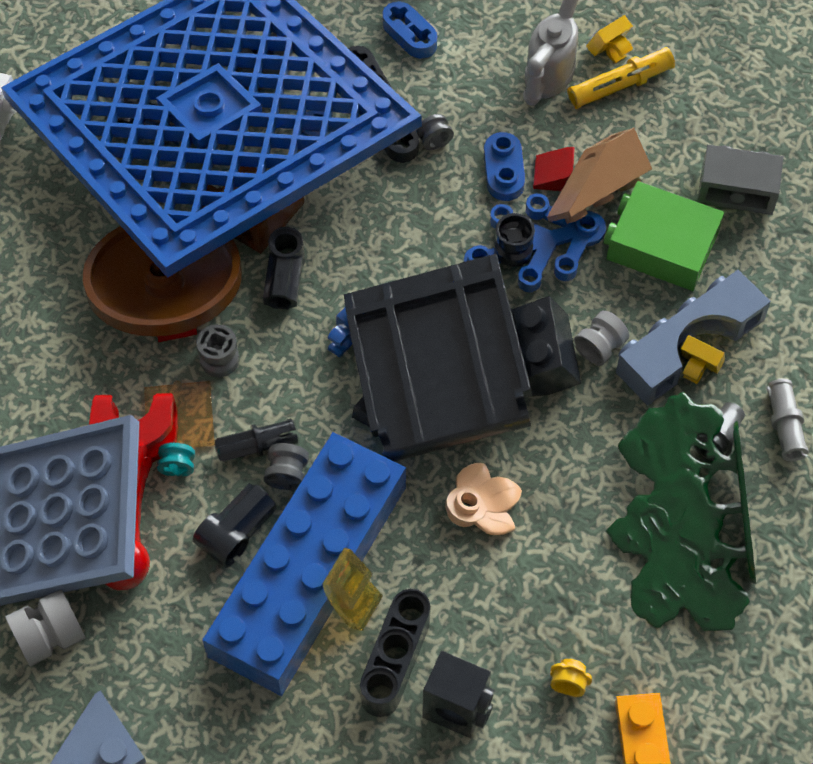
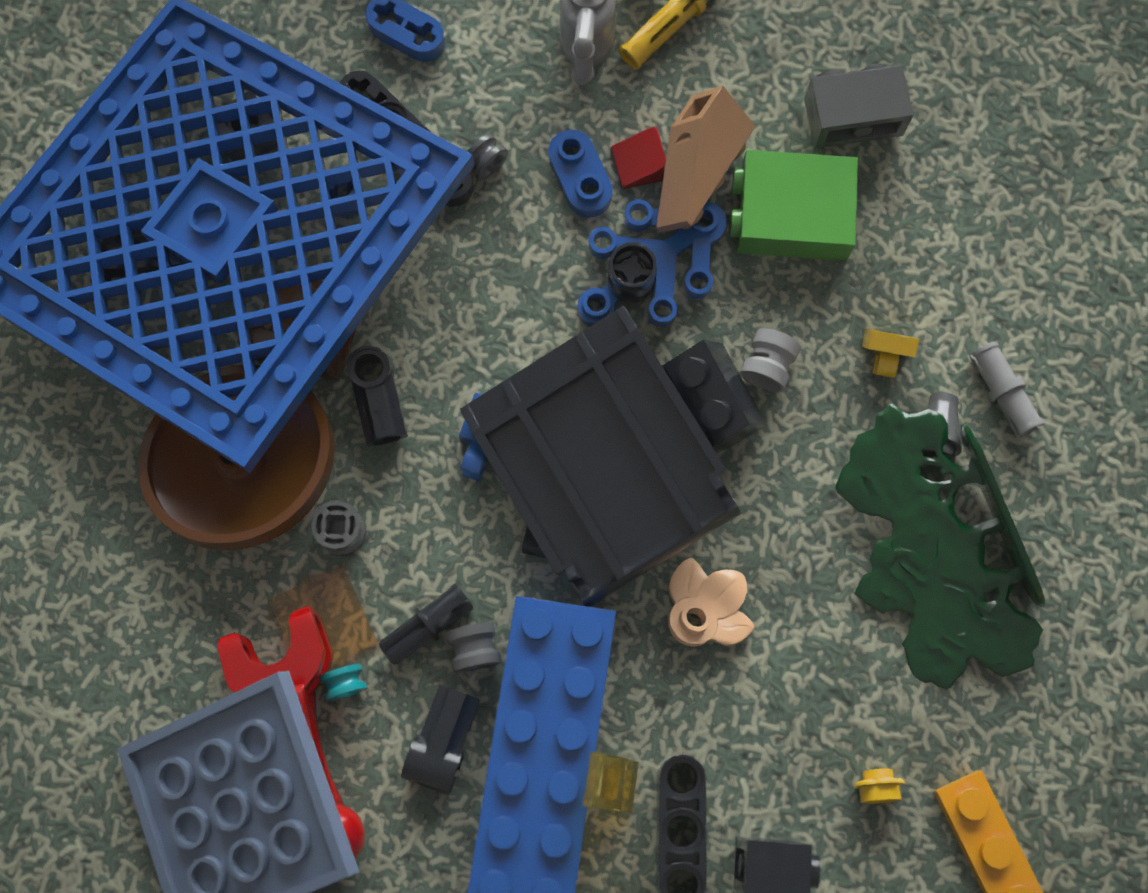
camera: 20 degrees left, 15 degrees up
(727, 309) = (898, 278): sand blue arch -> none

